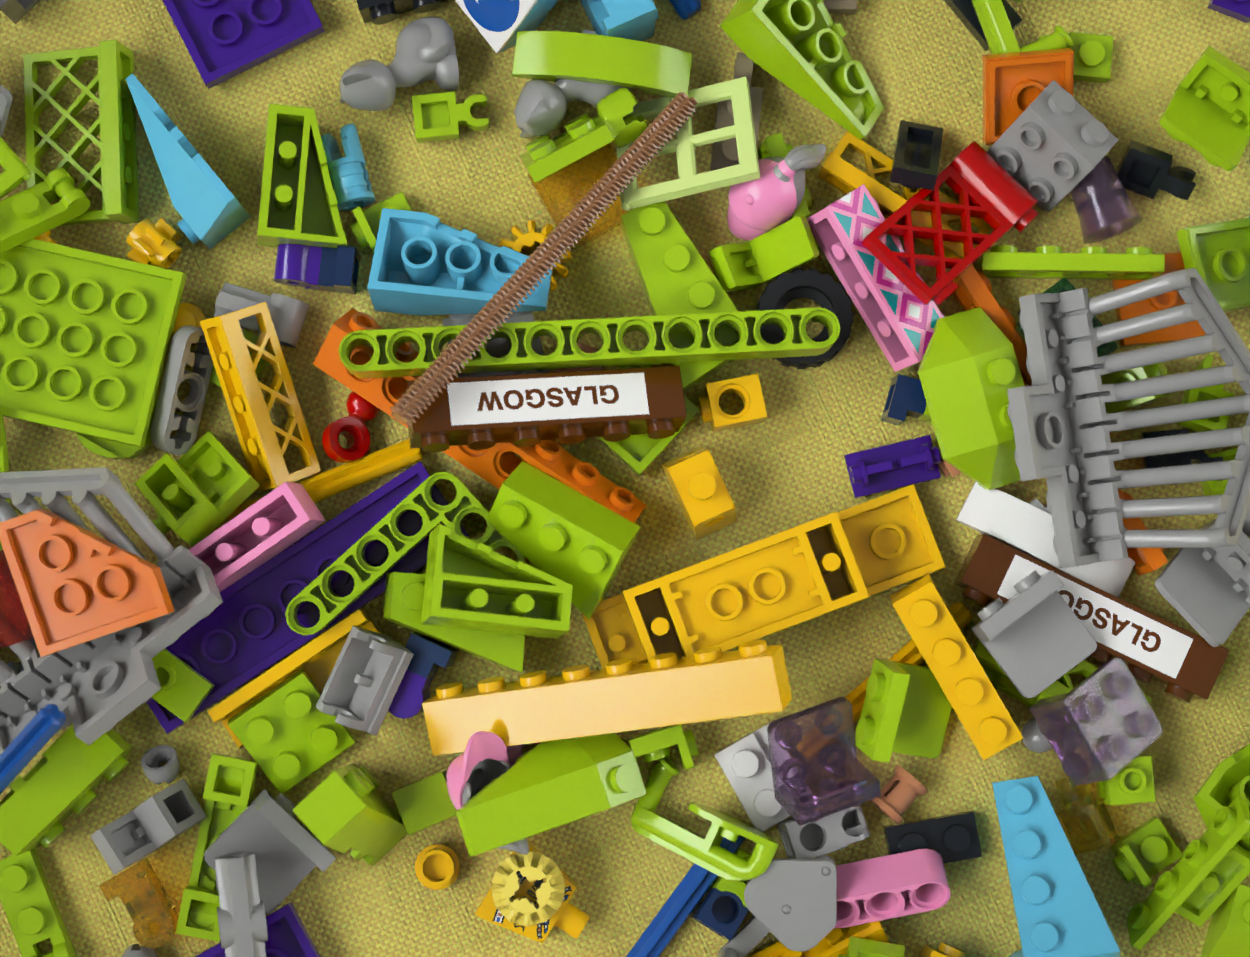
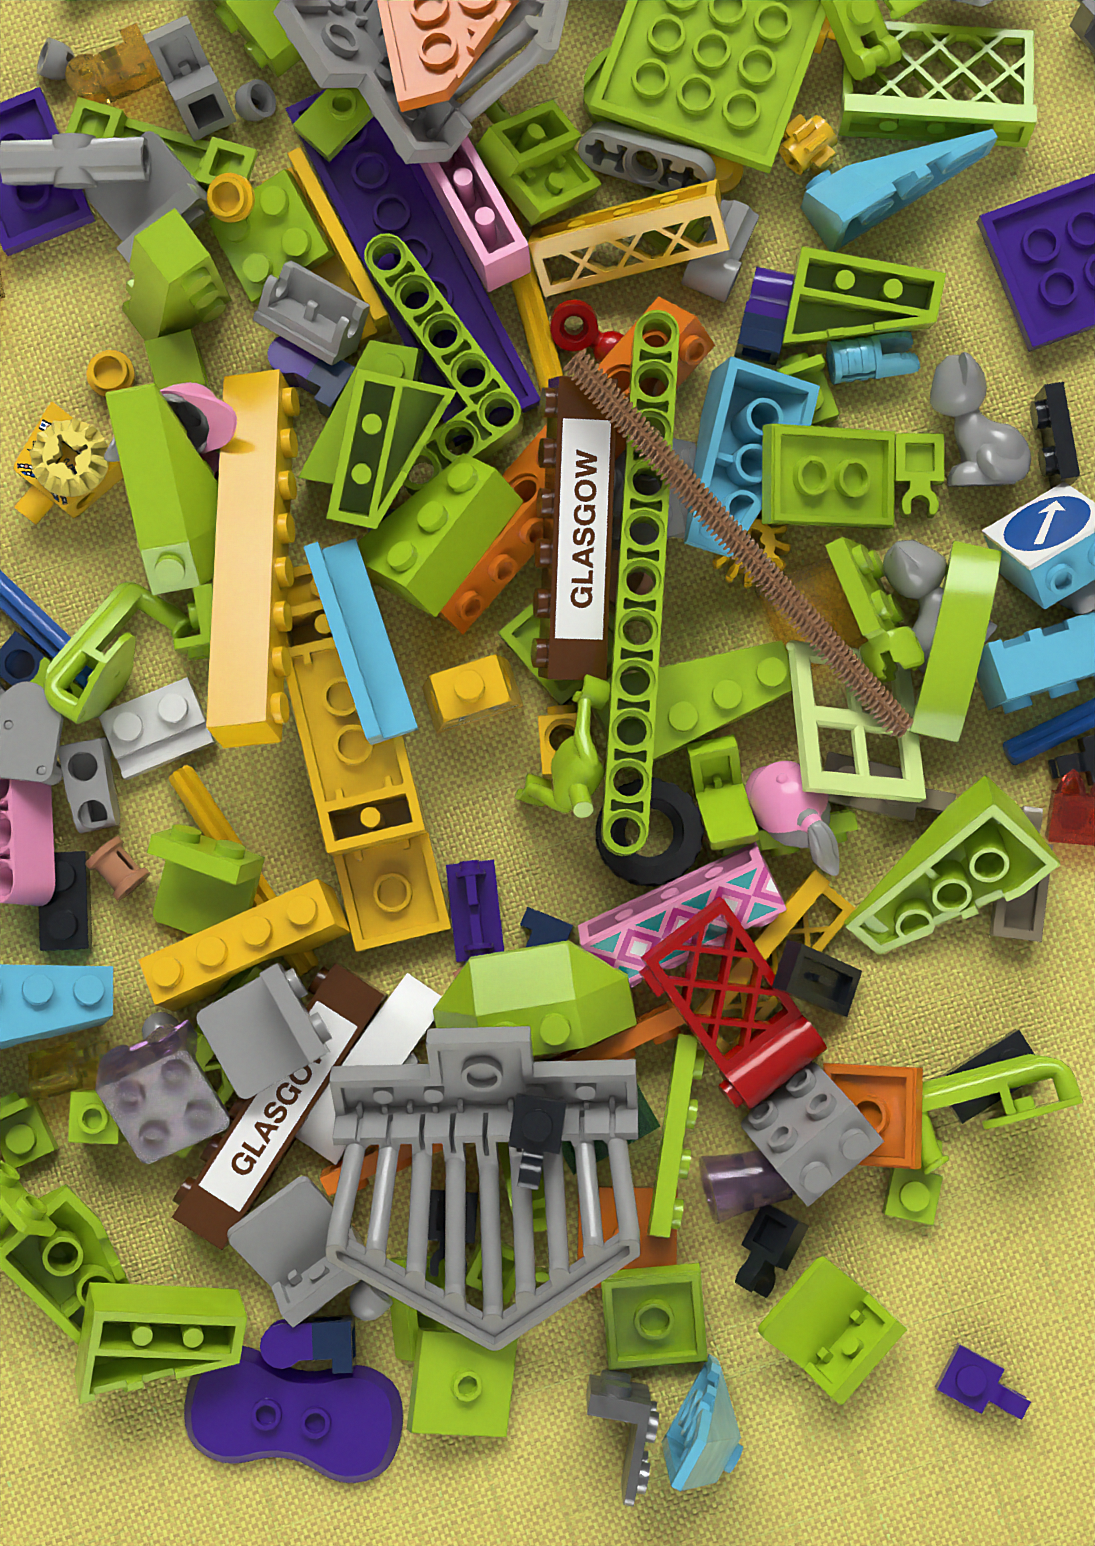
camera: 105 degrees right, 0 degrees up
(262, 770) = (230, 197): none -> yellow plate
(465, 192) = (828, 476): none -> lime tile
(674, 586) = (361, 640): none -> medium azure fence
(760, 385) = (575, 764): none -> lime piece
(818, 762) = (160, 782): bracket -> none
(1094, 375) = (536, 1129): none -> black plate

